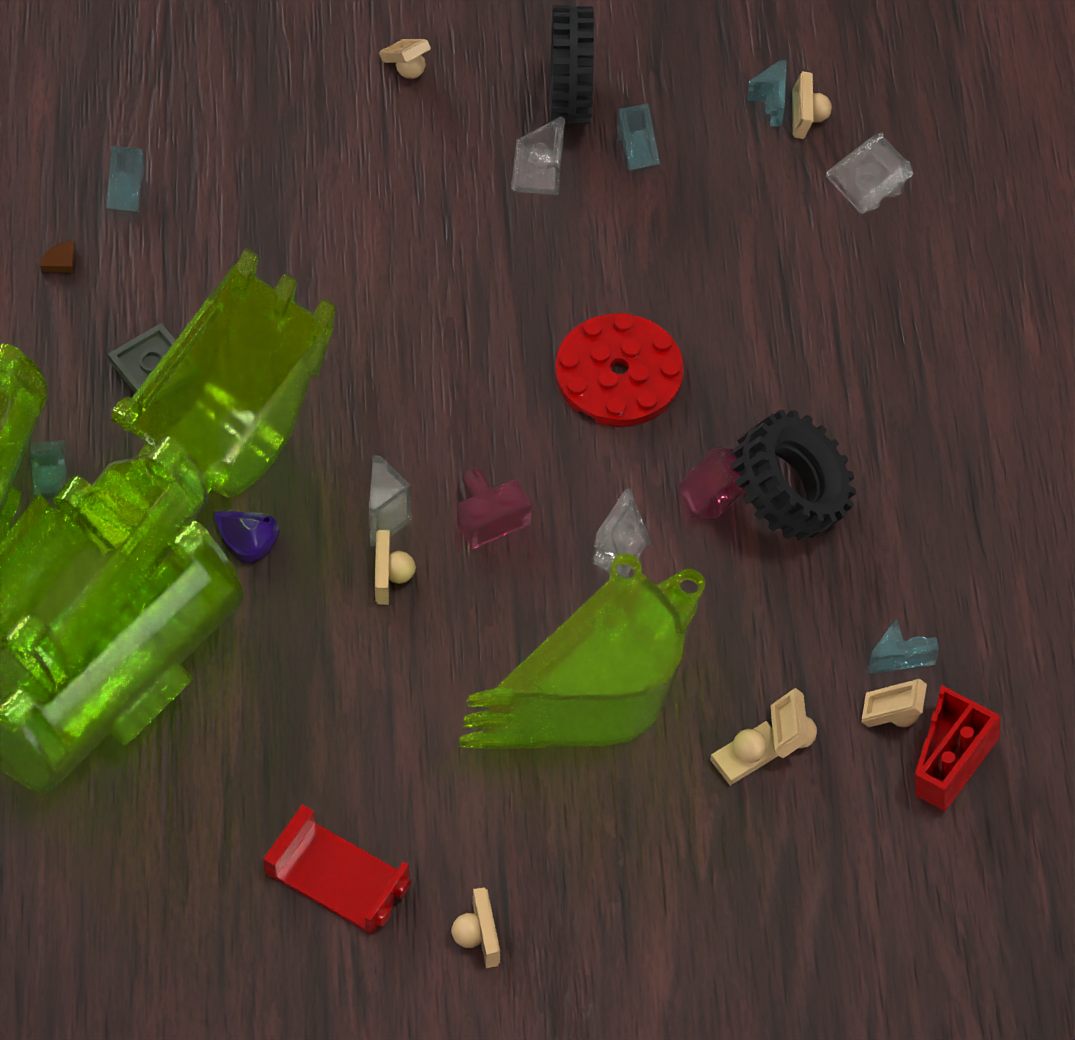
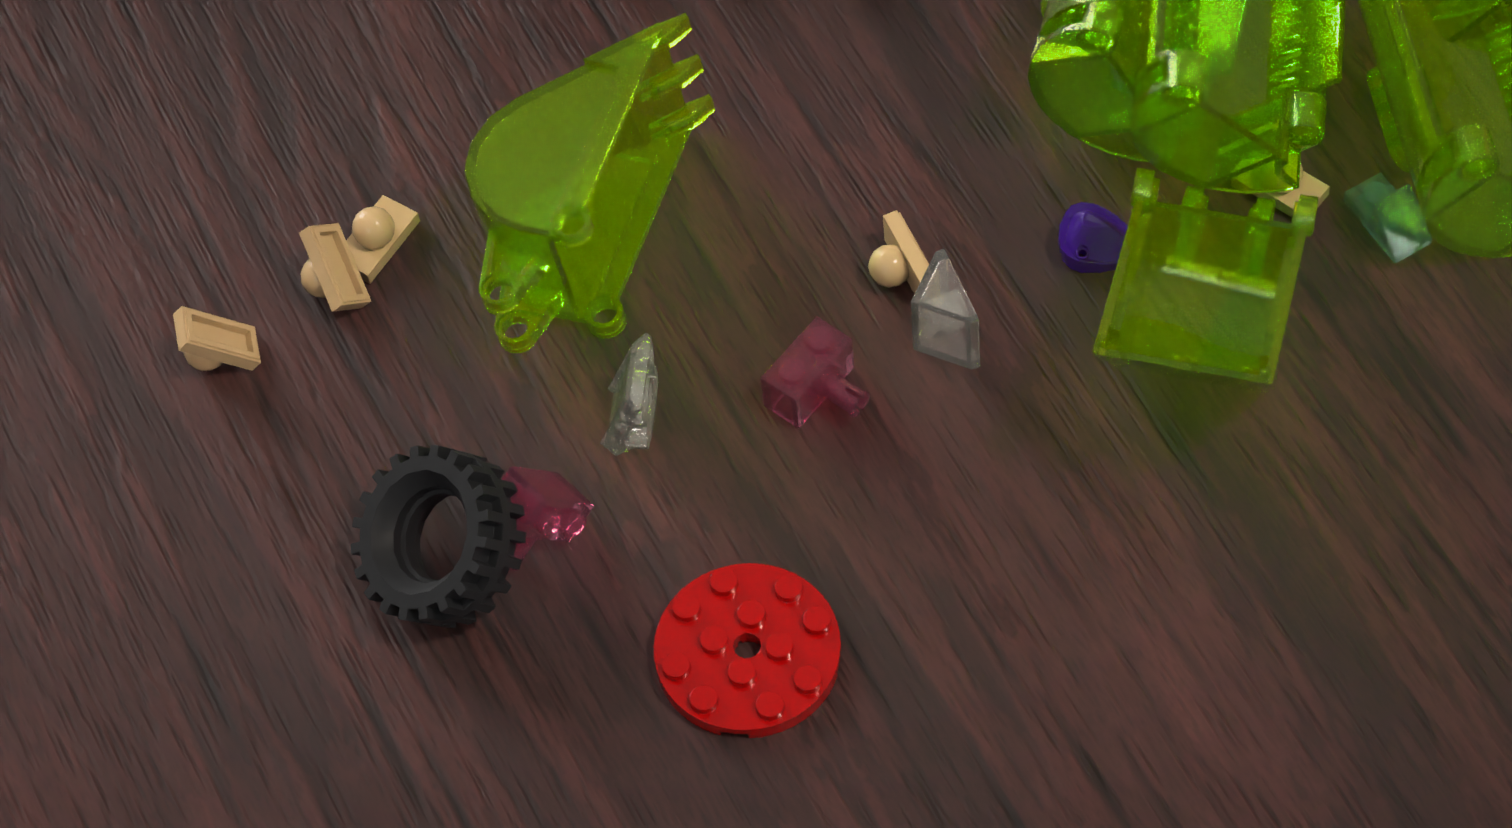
camera: 165 degrees right, 0 degrees up
(141, 355) = (1352, 389): dark grey plate -> none
(895, 654) = (238, 410): clear light blue slope -> none
(954, 748) = (127, 320): red wedge -> none

